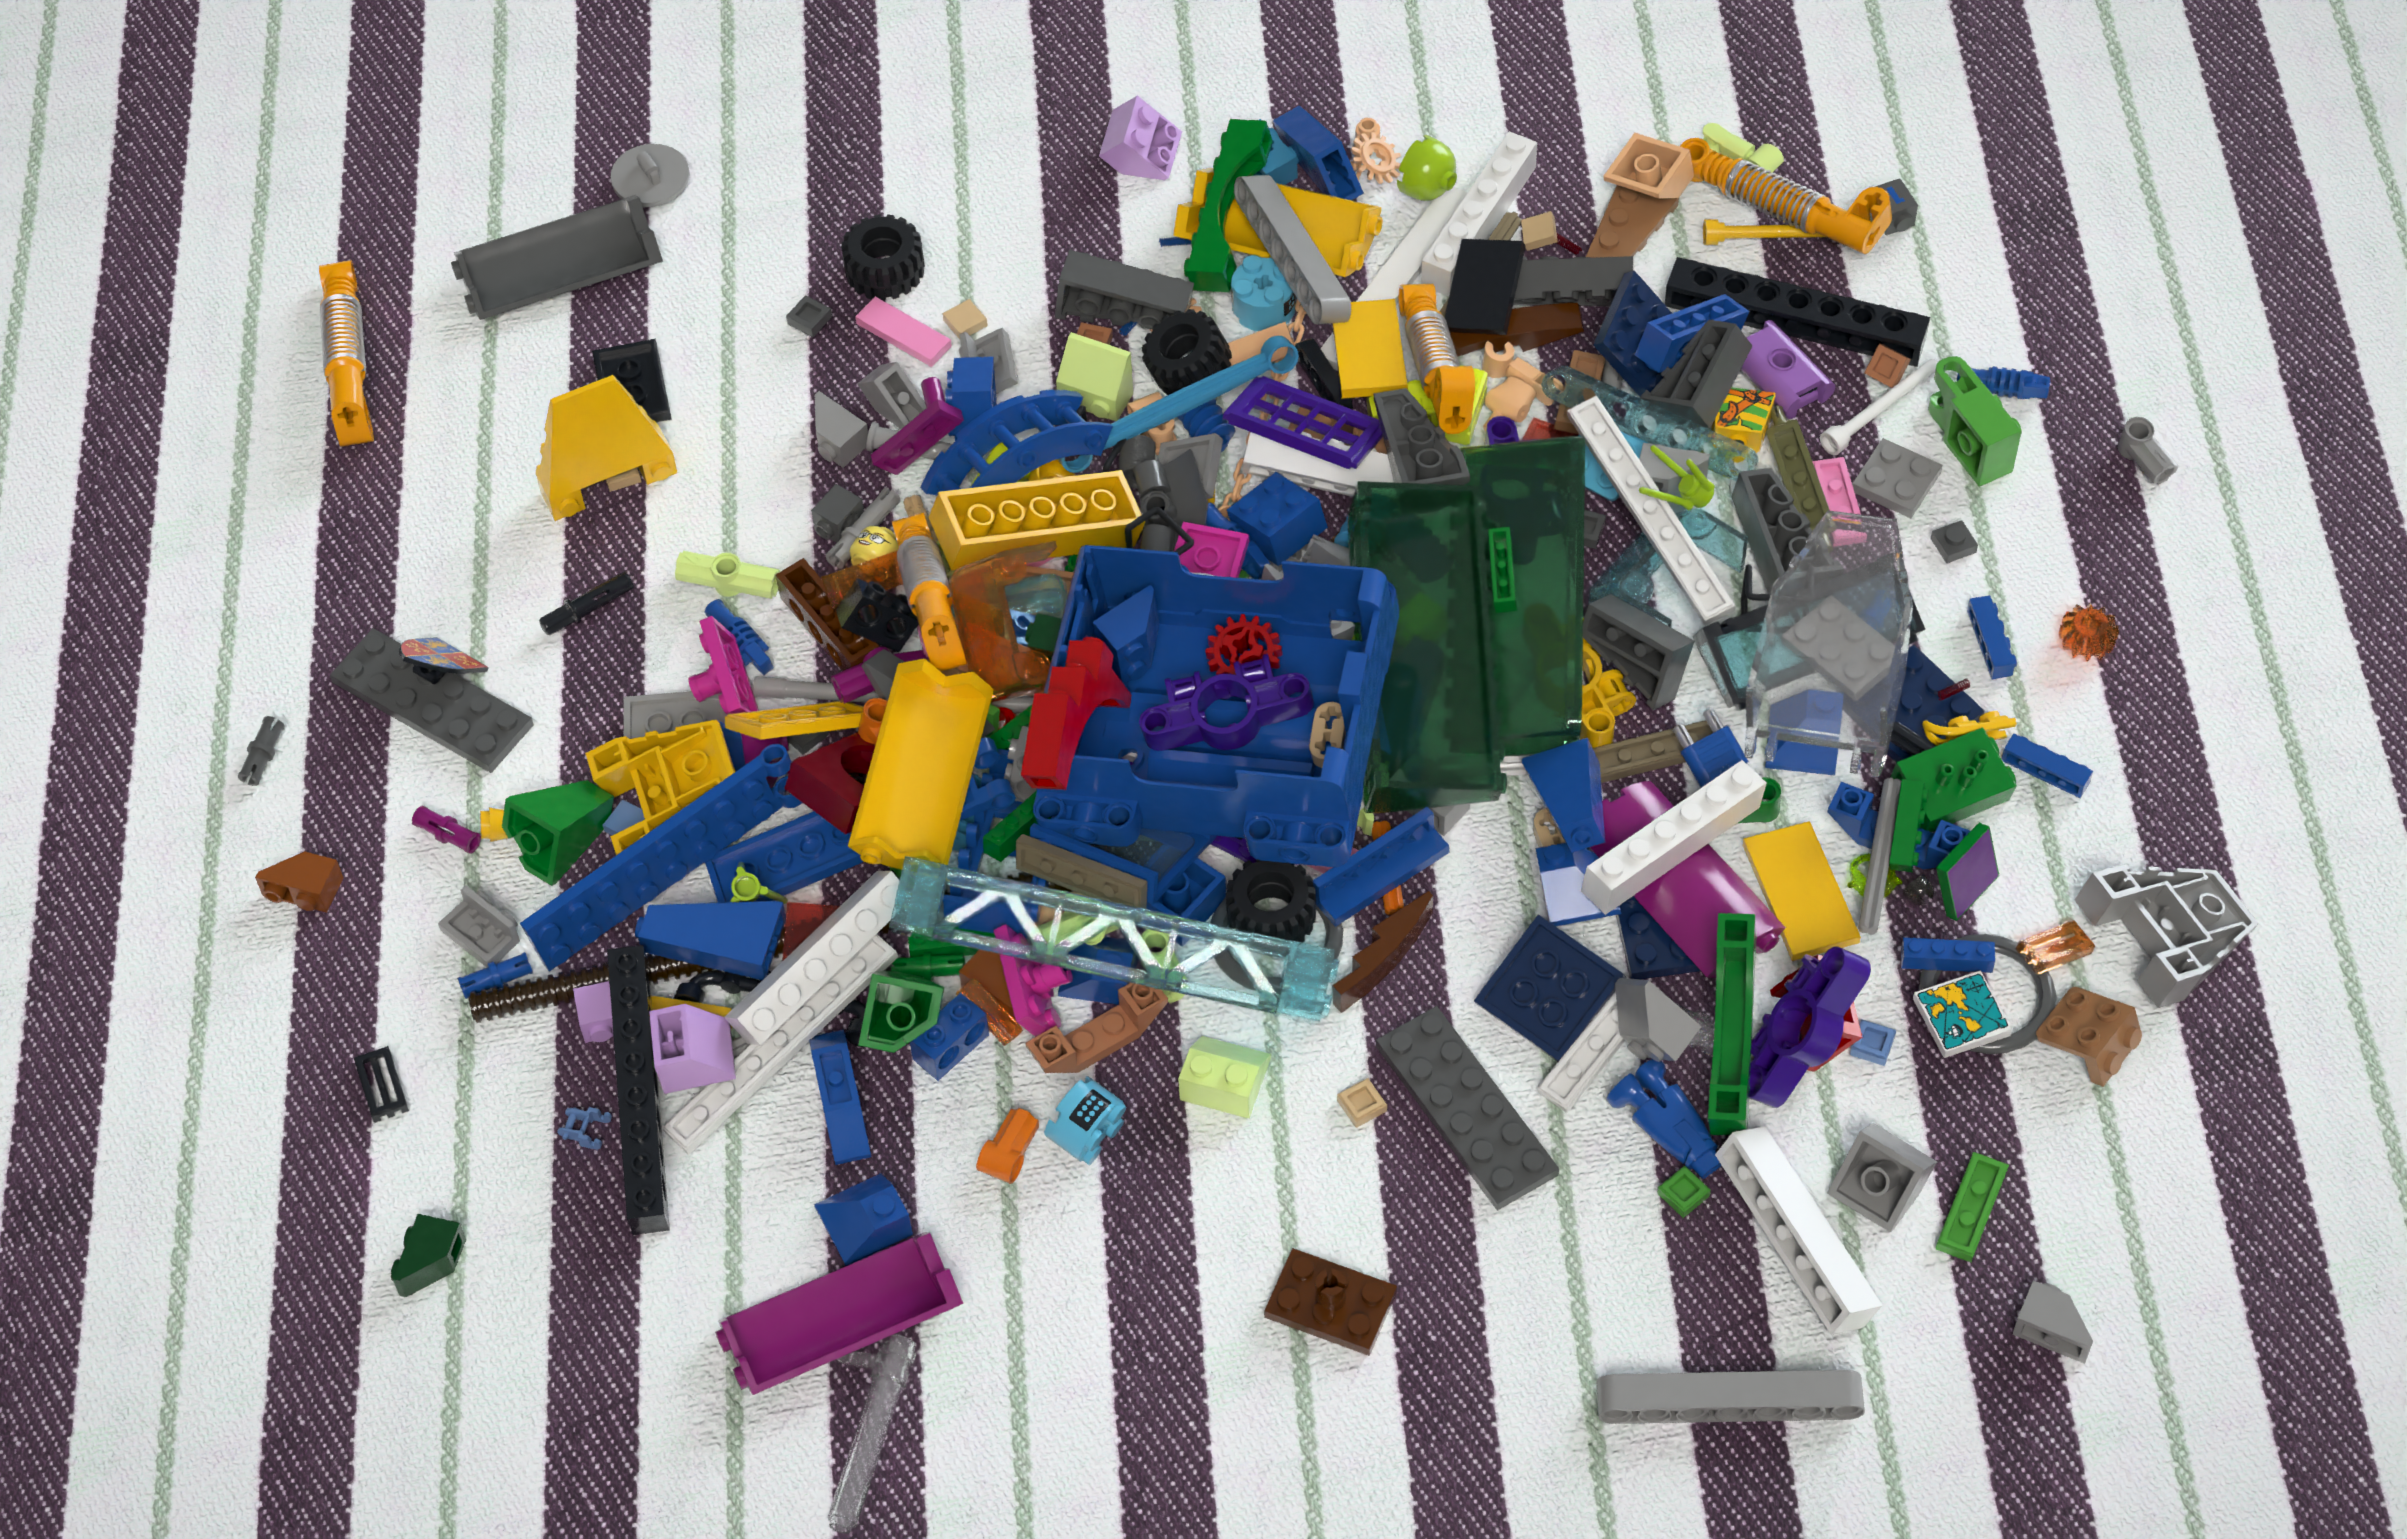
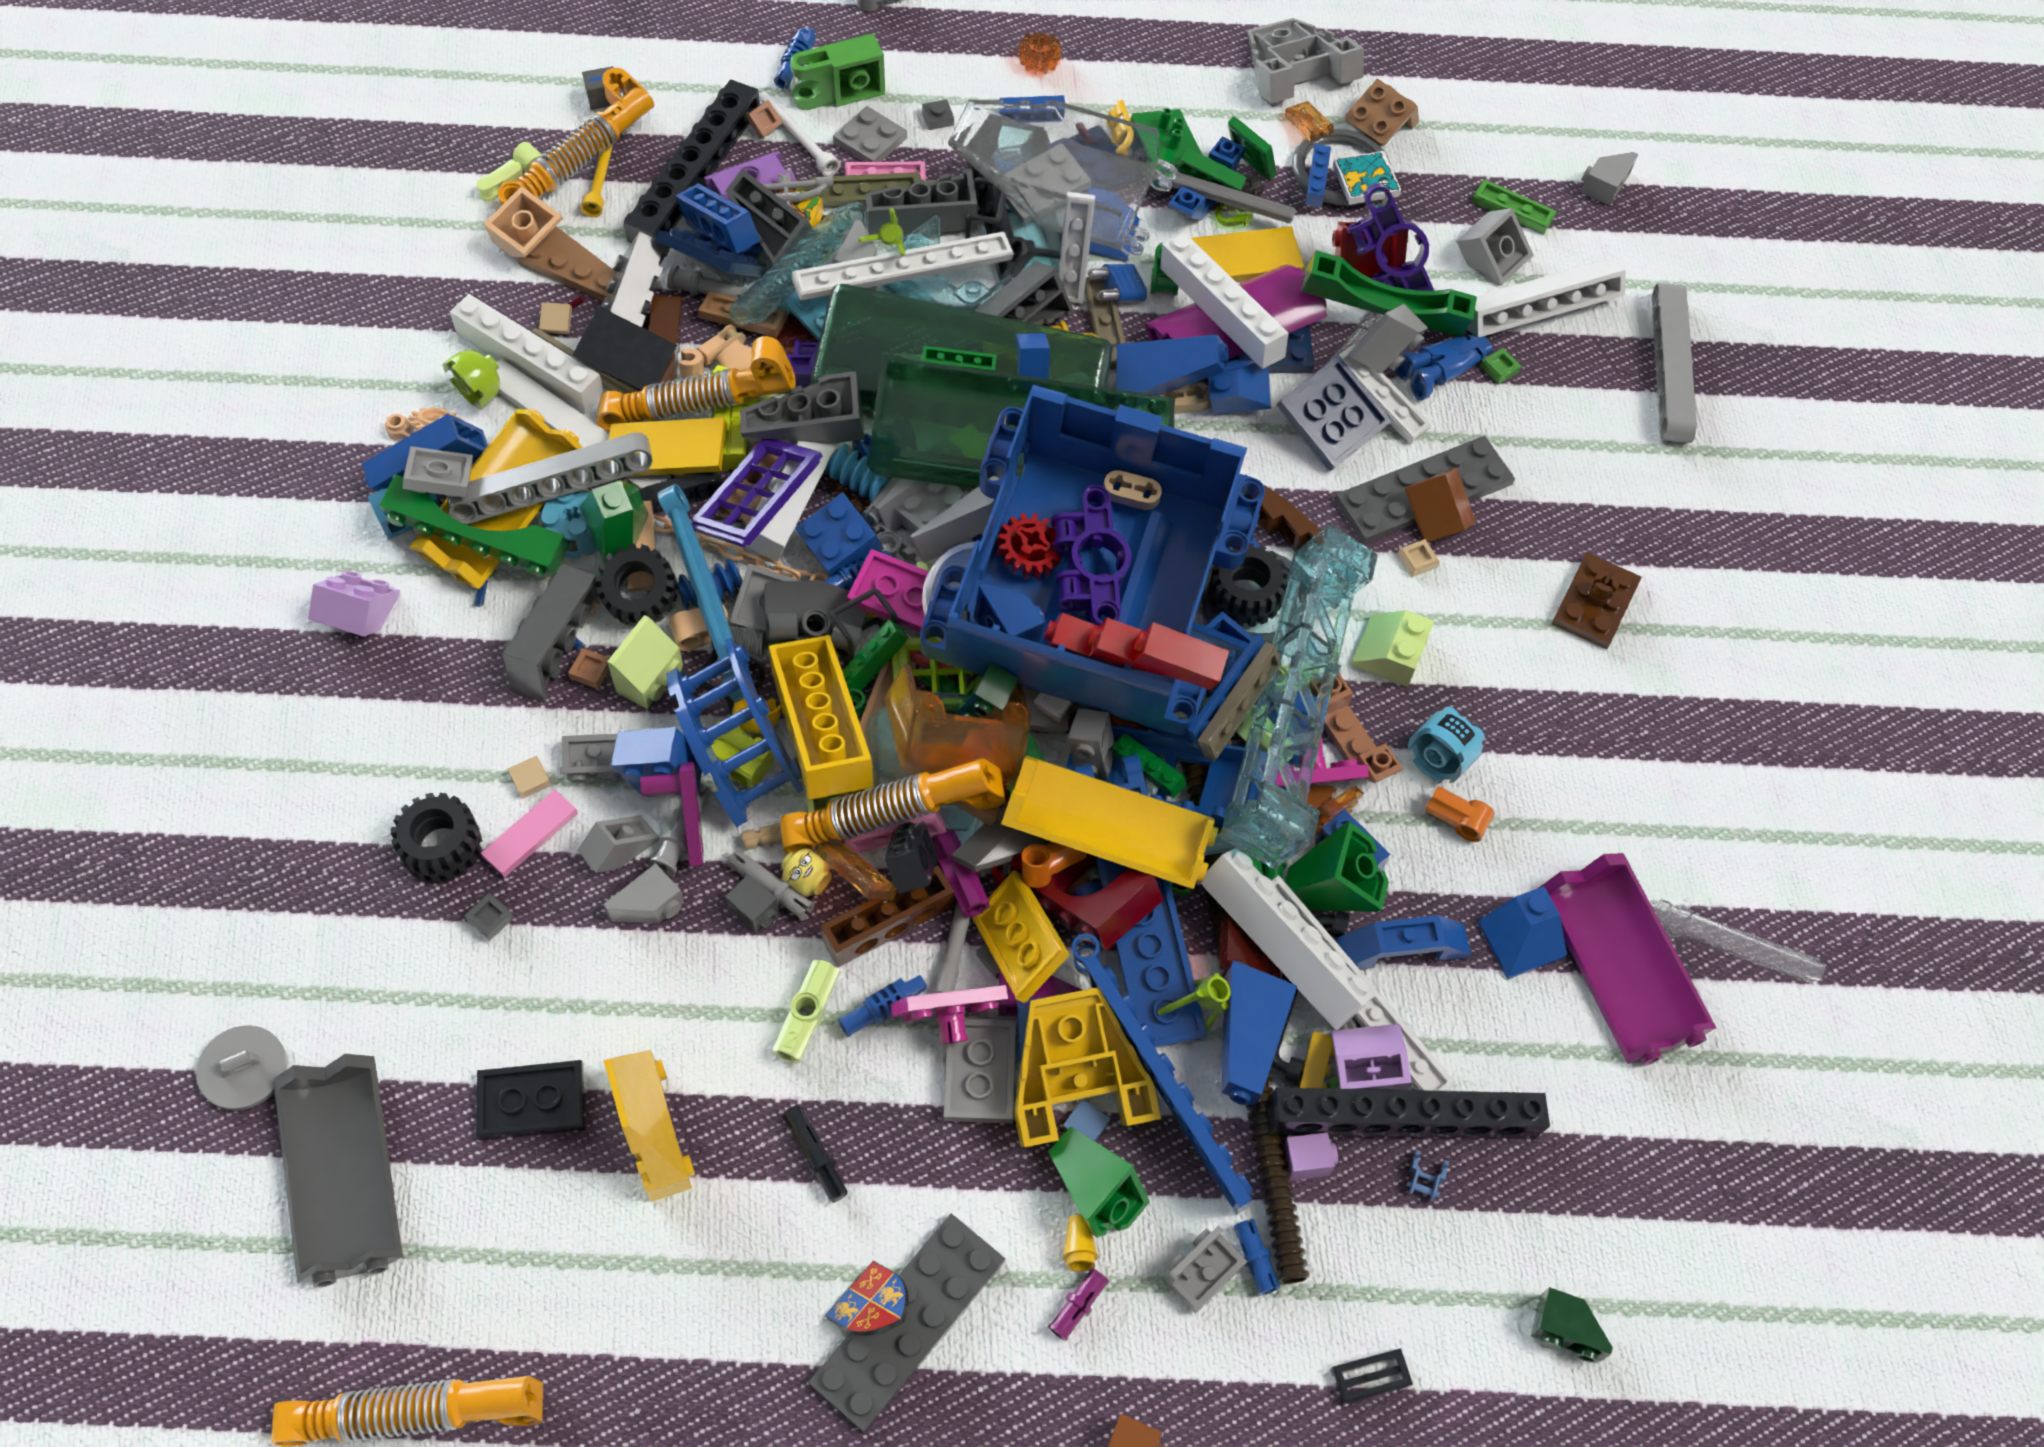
camera: 90 degrees left, 5 degrees up
(1247, 309) = (614, 516): none -> green slope
(1272, 152) = (437, 472): none -> light grey plate
(1432, 1115) = (1440, 505): none -> dark orange slope
(1528, 642) = (1033, 355): none -> blue slope
(1720, 675) = (1076, 244): none -> white tile
(1748, 397) = (795, 197): none -> light grey piece
(2047, 765) = (1154, 94): blue piece -> none

